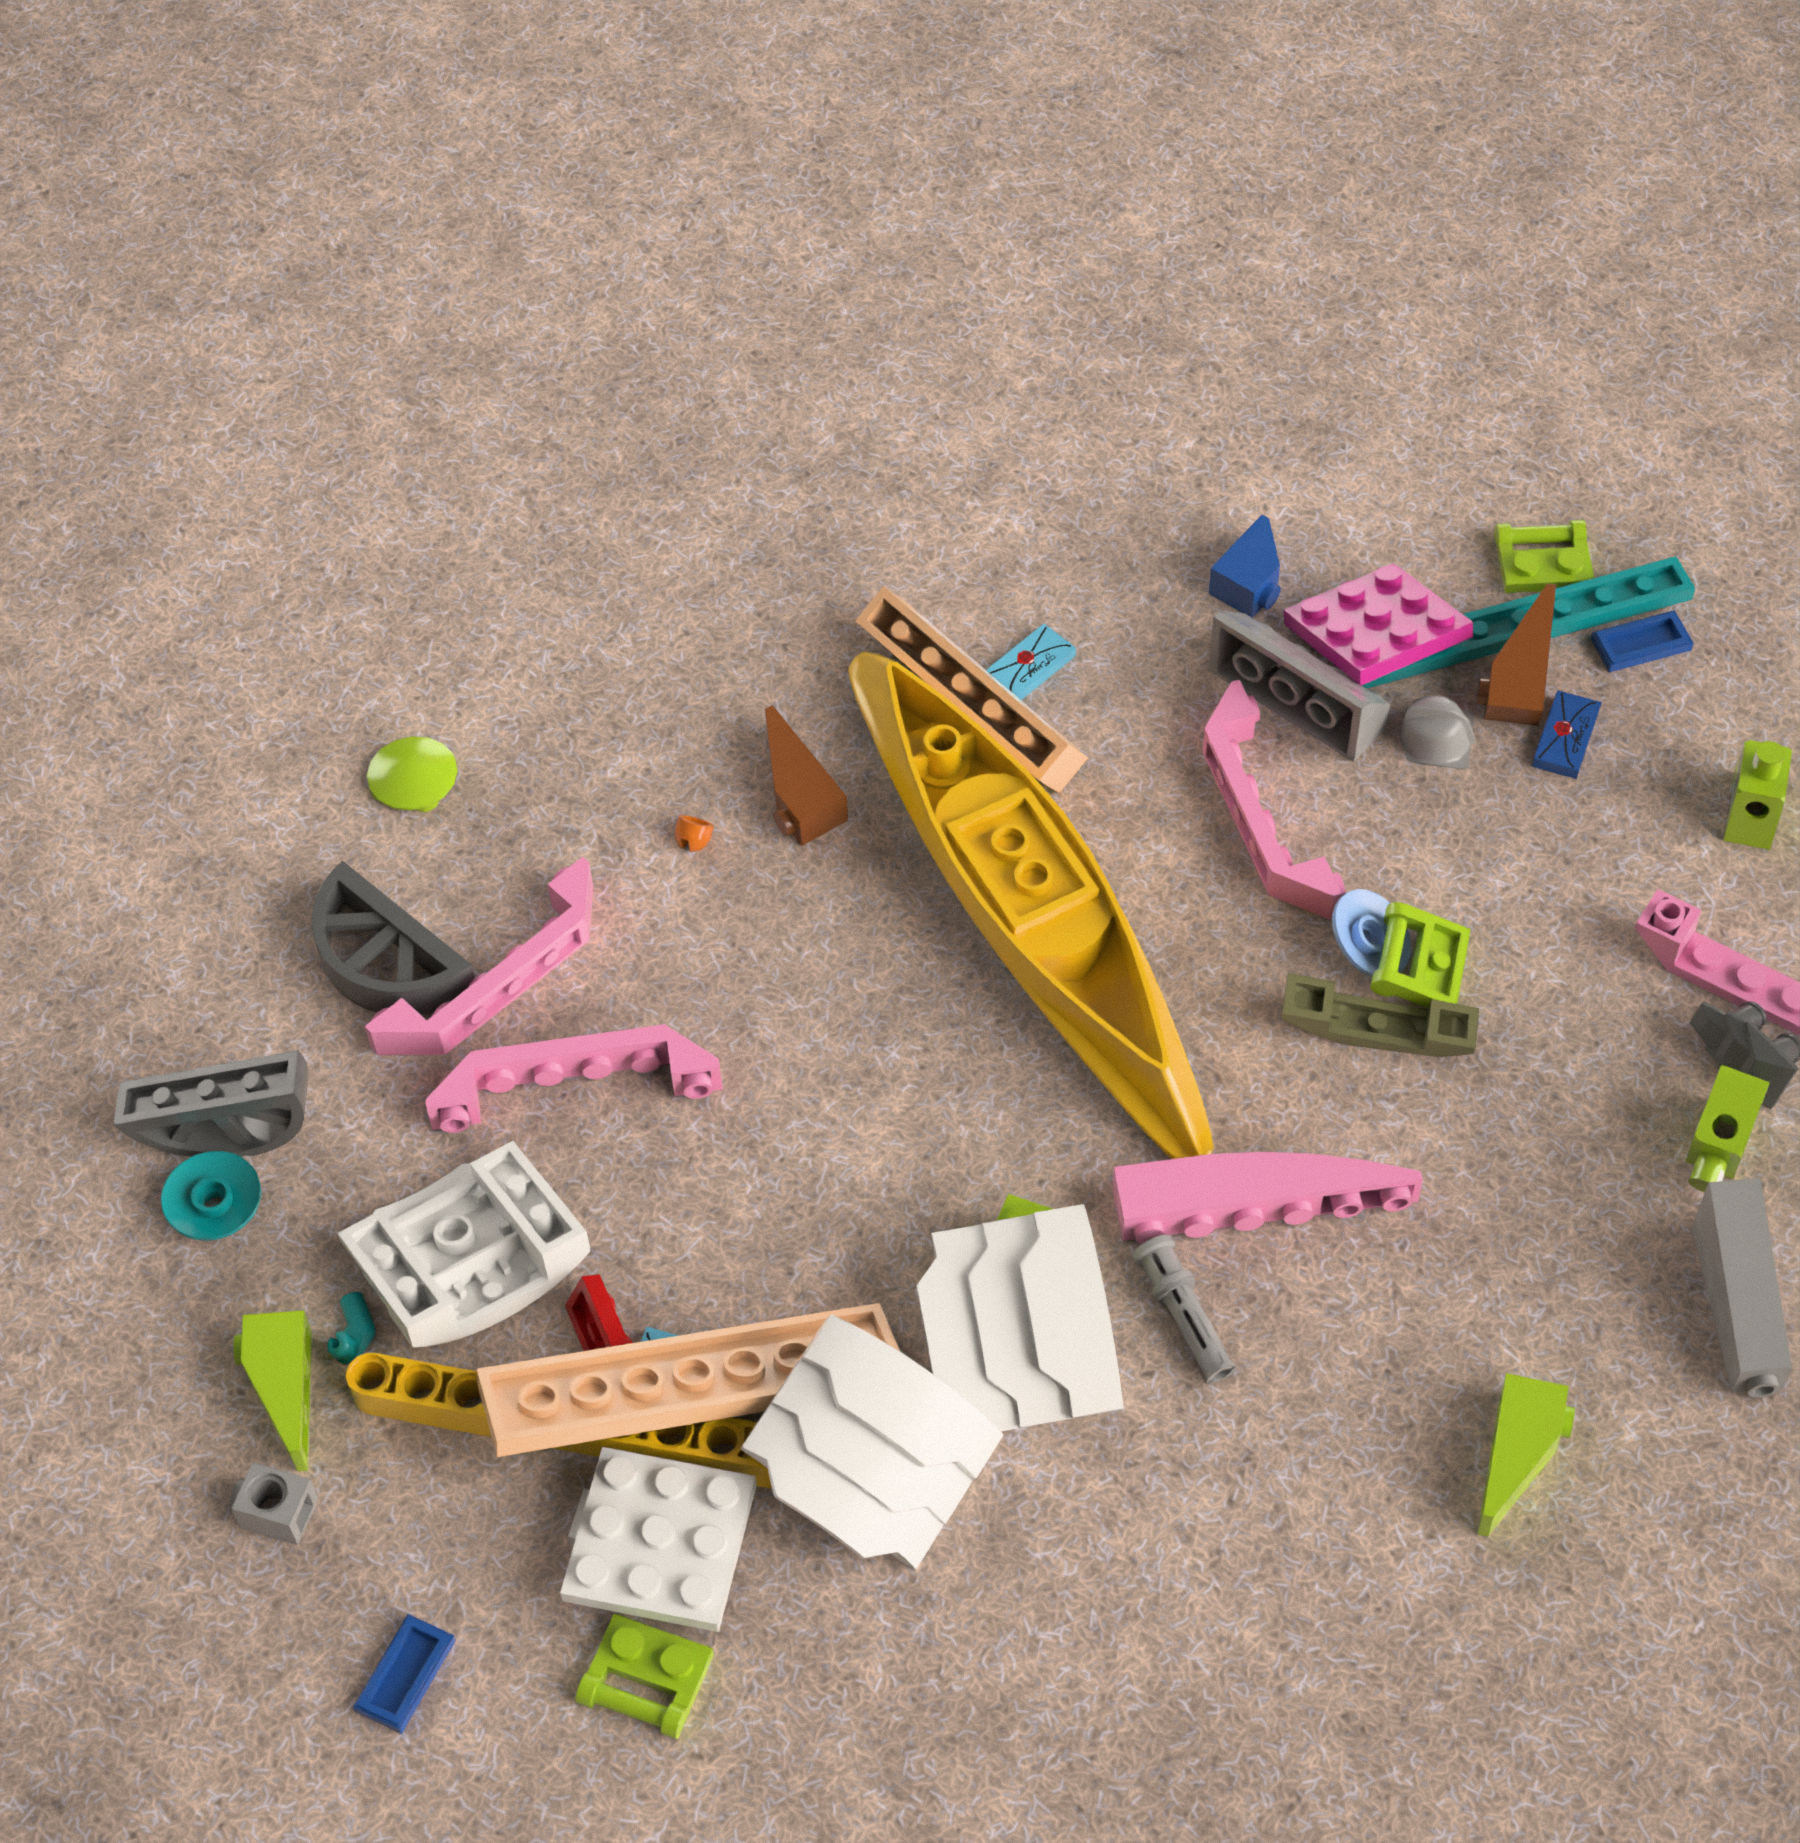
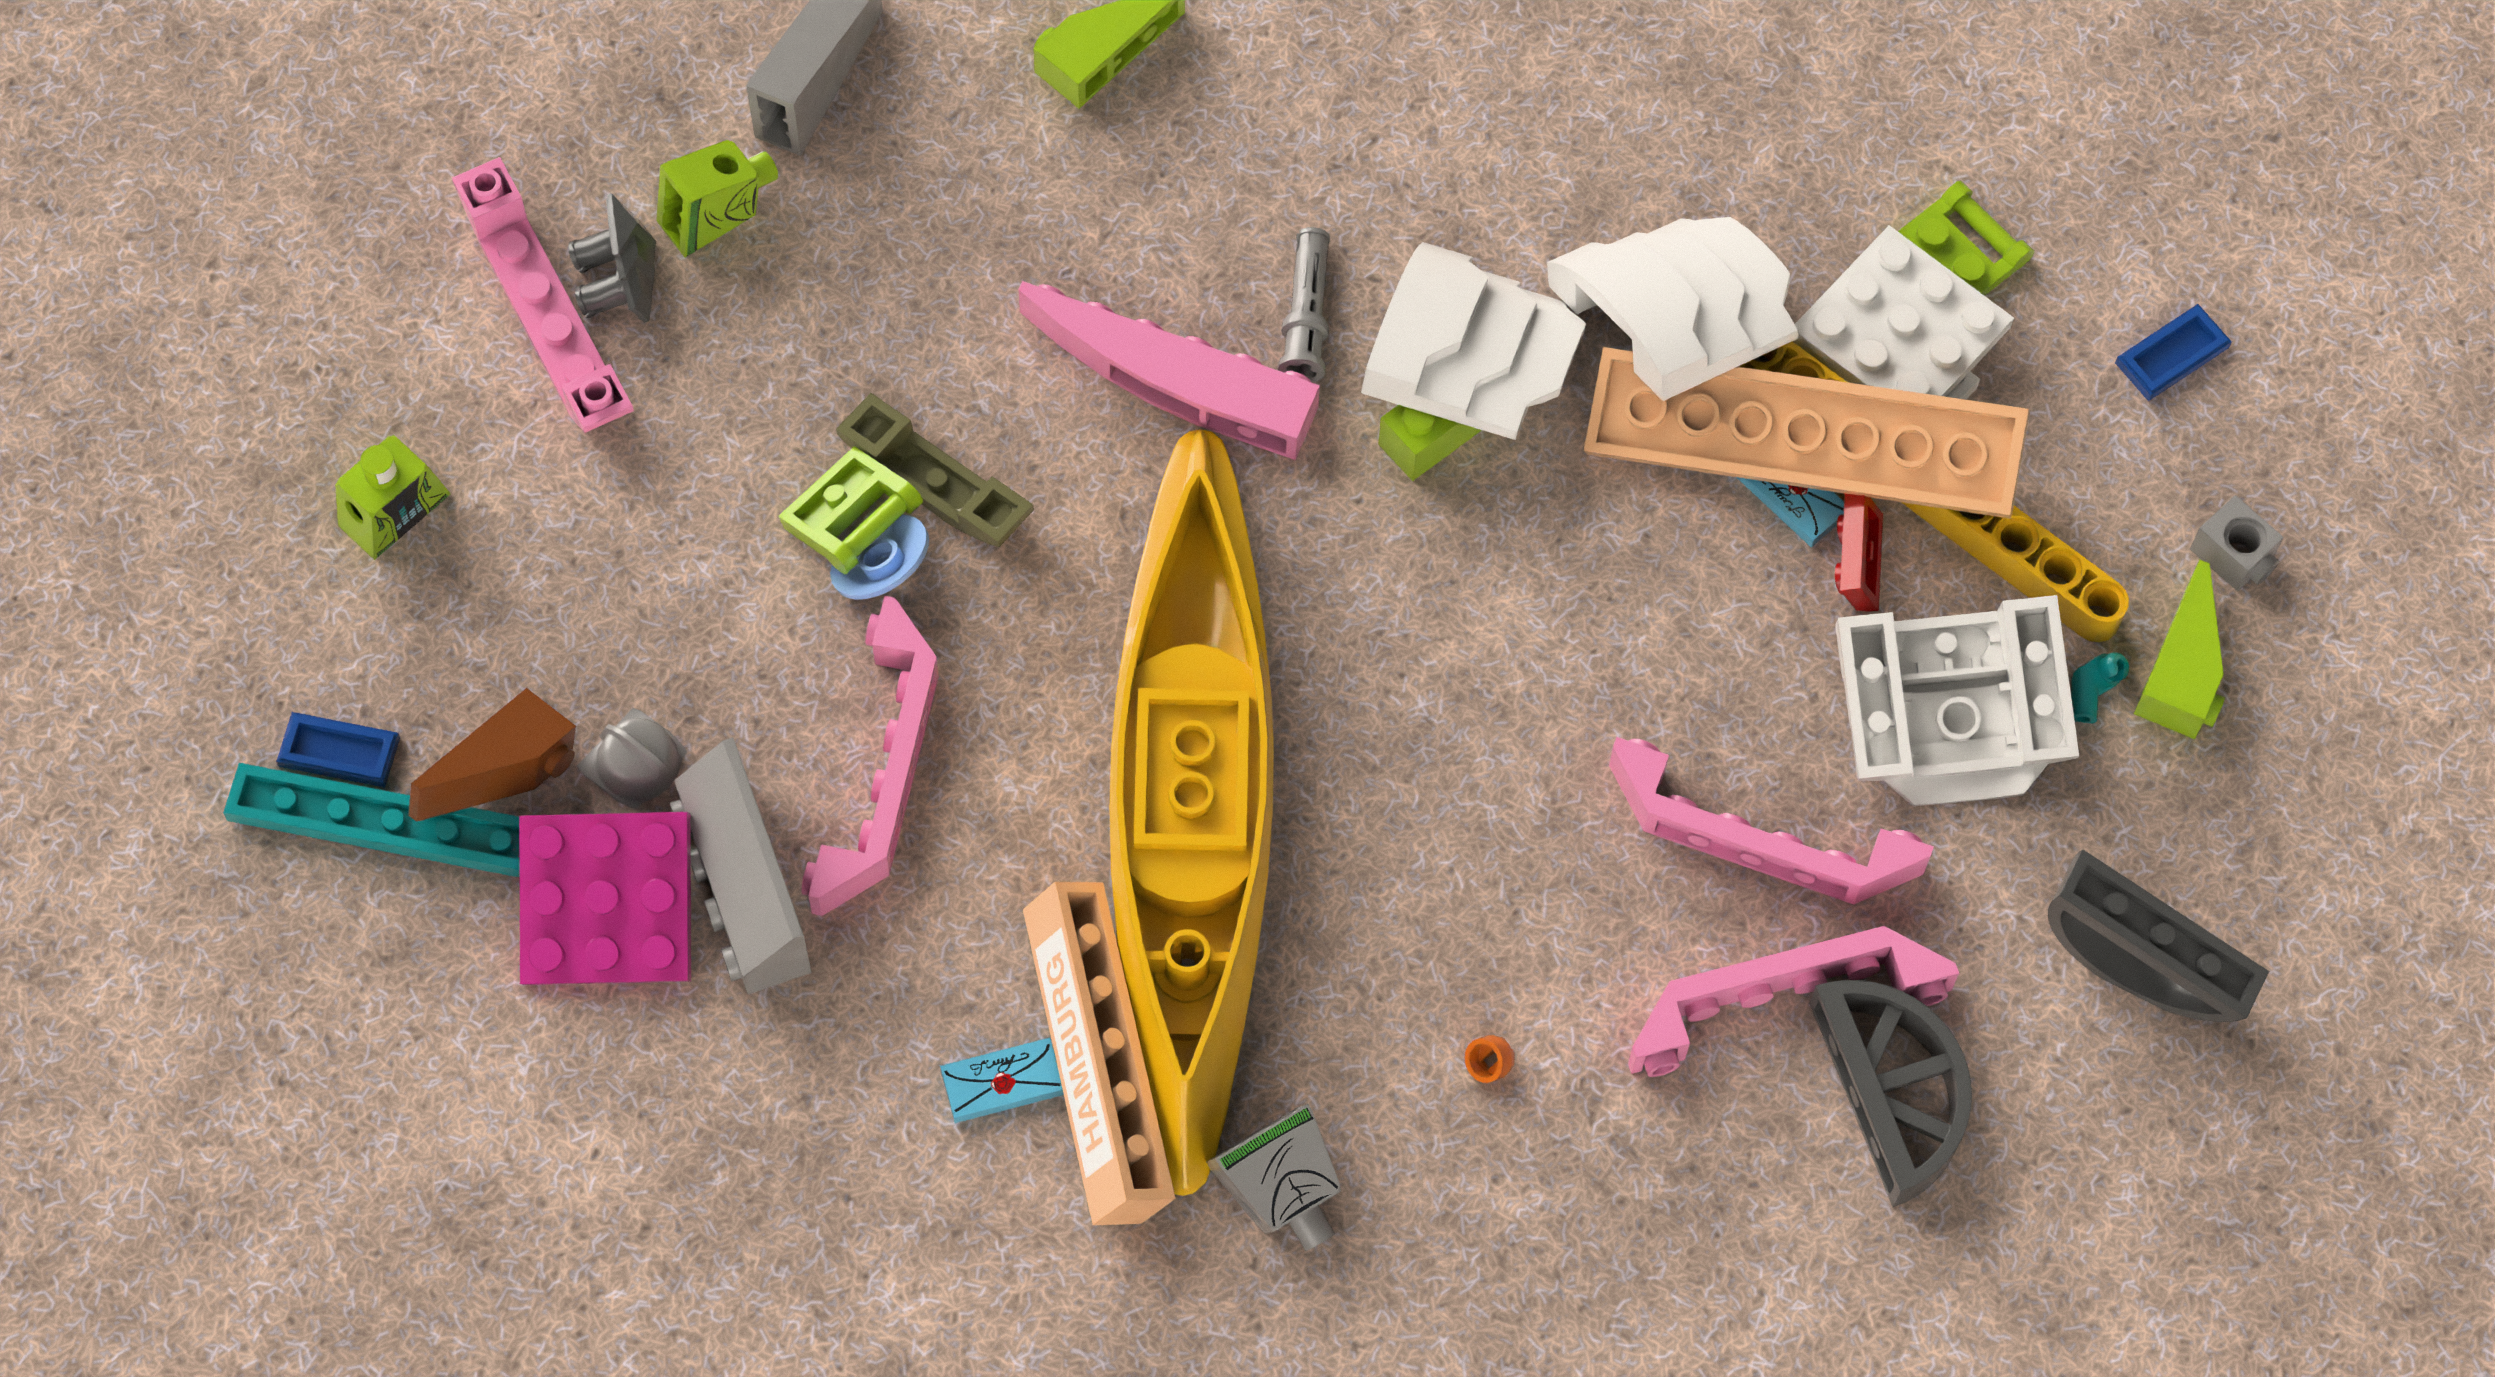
camera: 155 degrees left, 10 degrees up
(208, 1177) = (2200, 868): teal dish -> none
(412, 773) = (1763, 1311): lime dish -> none
(798, 680) = (1282, 1176): none -> light grey torso
(805, 794) = (1350, 1038): dark orange slope -> none
(1248, 571) = (683, 1054): blue slope -> none
(1534, 568) = (359, 892): lime plate -> none
(1566, 734) = (499, 681): blue tile -> none

